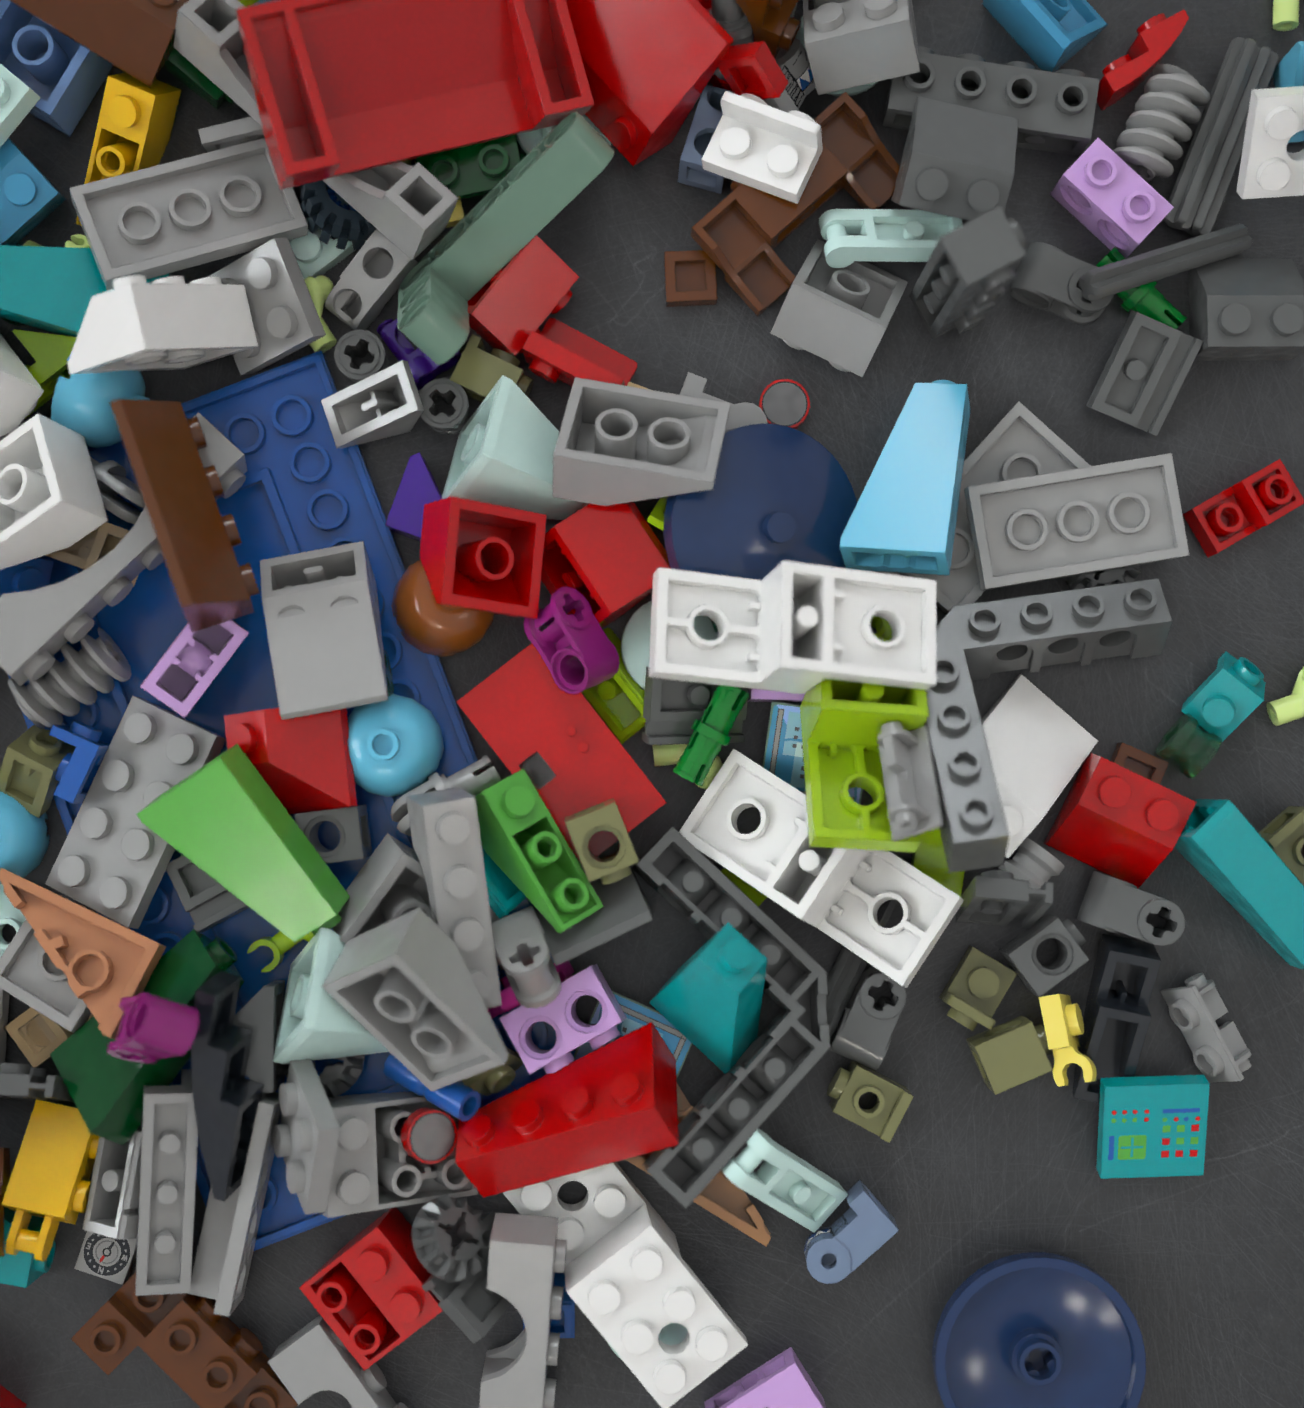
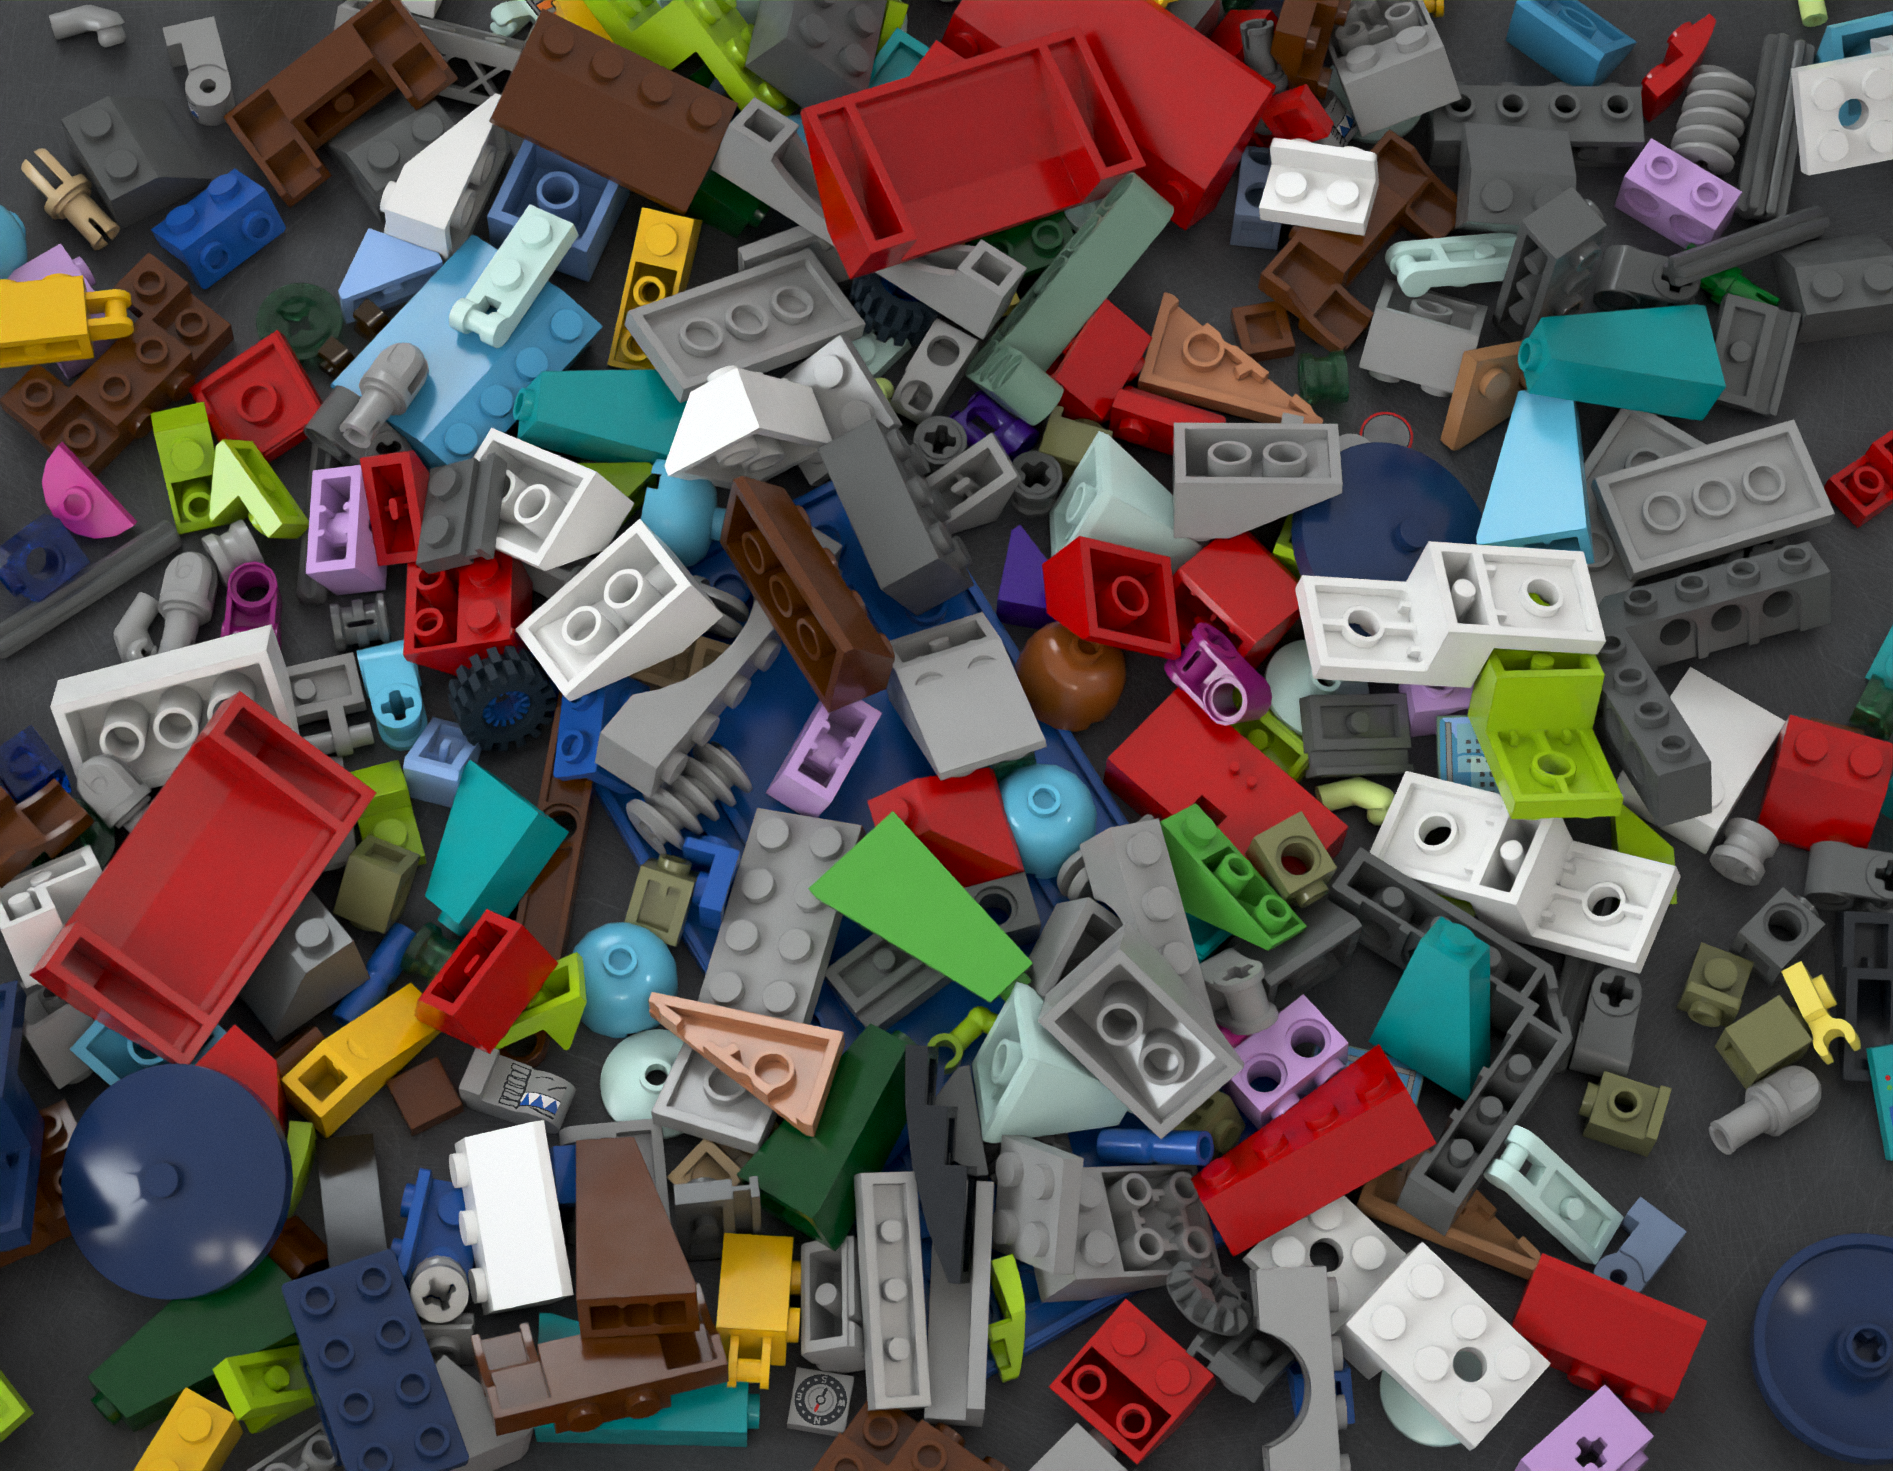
camera: 15 degrees left, 20 degrees down
(153, 1029) = (864, 1092): magenta piece -> none
(277, 1228) = (1008, 1335): none -> lime slope
(295, 434) = (897, 516): none -> dark grey brick
(429, 1135) = (1164, 1192): flat silver tile -> none
(623, 309) = (1202, 369): none -> nougat wing
(711, 733) = (1380, 754): green pin -> none
(736, 337) = (1323, 377): none -> clear green wheel
(804, 1313) = (1607, 1334): none -> red slope
(895, 364) = (1483, 393): none -> medium nougat wing
(909, 780) = (1597, 739): light grey hinge -> none
(1000, 898) = (1721, 878): dark grey plate -> none
(1000, 1116) = (1769, 1107): none -> light grey arm
(1025, 369) = (1627, 360): none -> teal slope

